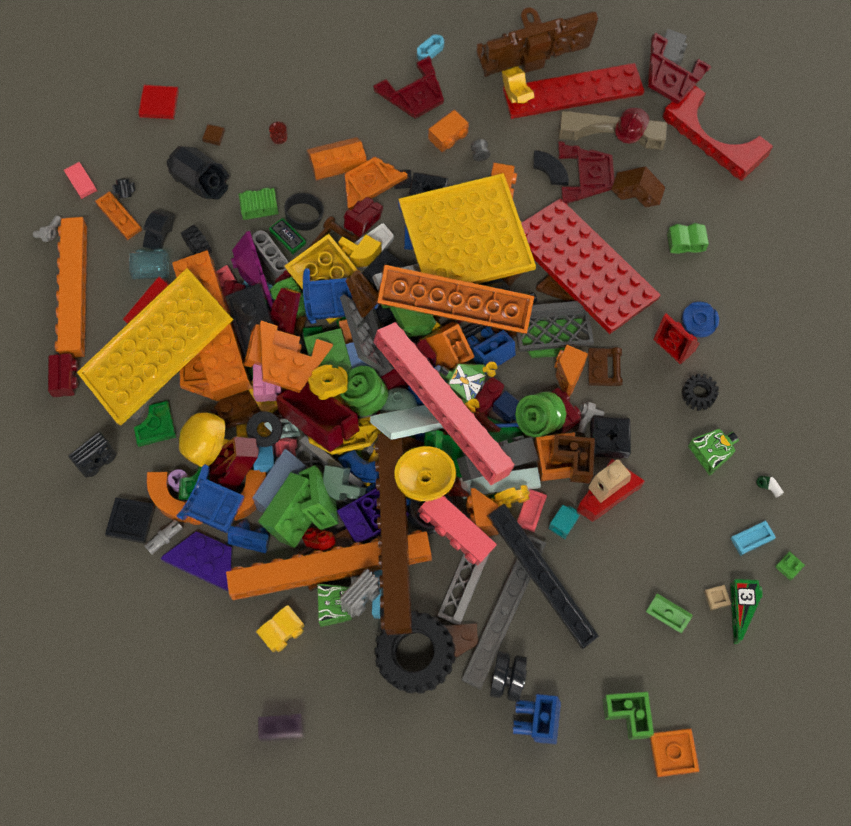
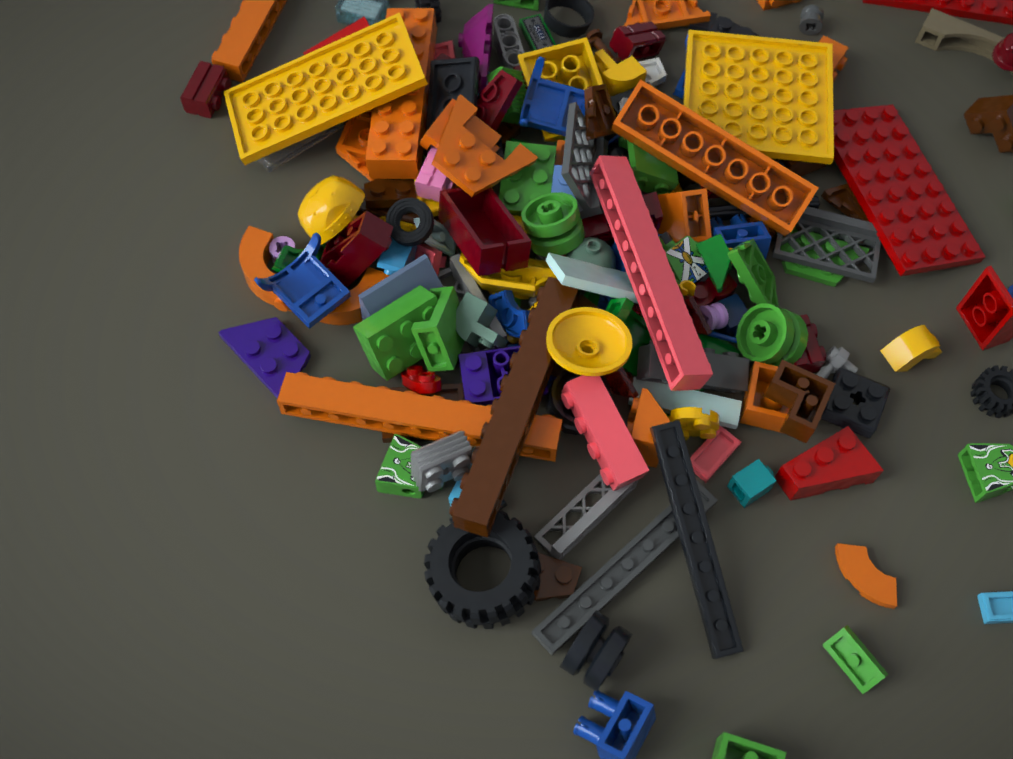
camera: 20 degrees right, 5 degrees down
(93, 455) = (195, 183): black brick -> none
(130, 520) = (204, 274): black plate -> none
(157, 425) = (287, 184): green tile -> none
(163, 537) = (234, 309): light grey pin -> none
(243, 537) = (332, 347): blue tile -> none
(280, 629) = (324, 472): yellow brick -> none
(280, 727) = (266, 594): clear purple brick -> none
(337, 385) = (513, 194): yellow plate -> none
(484, 374) = (715, 257): none -> green slope
(496, 413) = (715, 315): none -> lavender wheel
(513, 372) = (754, 272): none -> bright green wing
(551, 167) = (894, 67): black tile -> none
(569, 368) = (833, 296): orange slope -> none
(594, 172) = (947, 91): dark red wing -> none
(599, 367) = (870, 313): reddish brown plate -> none
(611, 478) = (841, 444): tan torso -> none
(634, 384) = (911, 348): none -> yellow brick
(656, 555) = (865, 577): none -> orange tile
(717, 597) = (931, 666): tan tile -> none
(744, 602) = (970, 686): green slope -> none

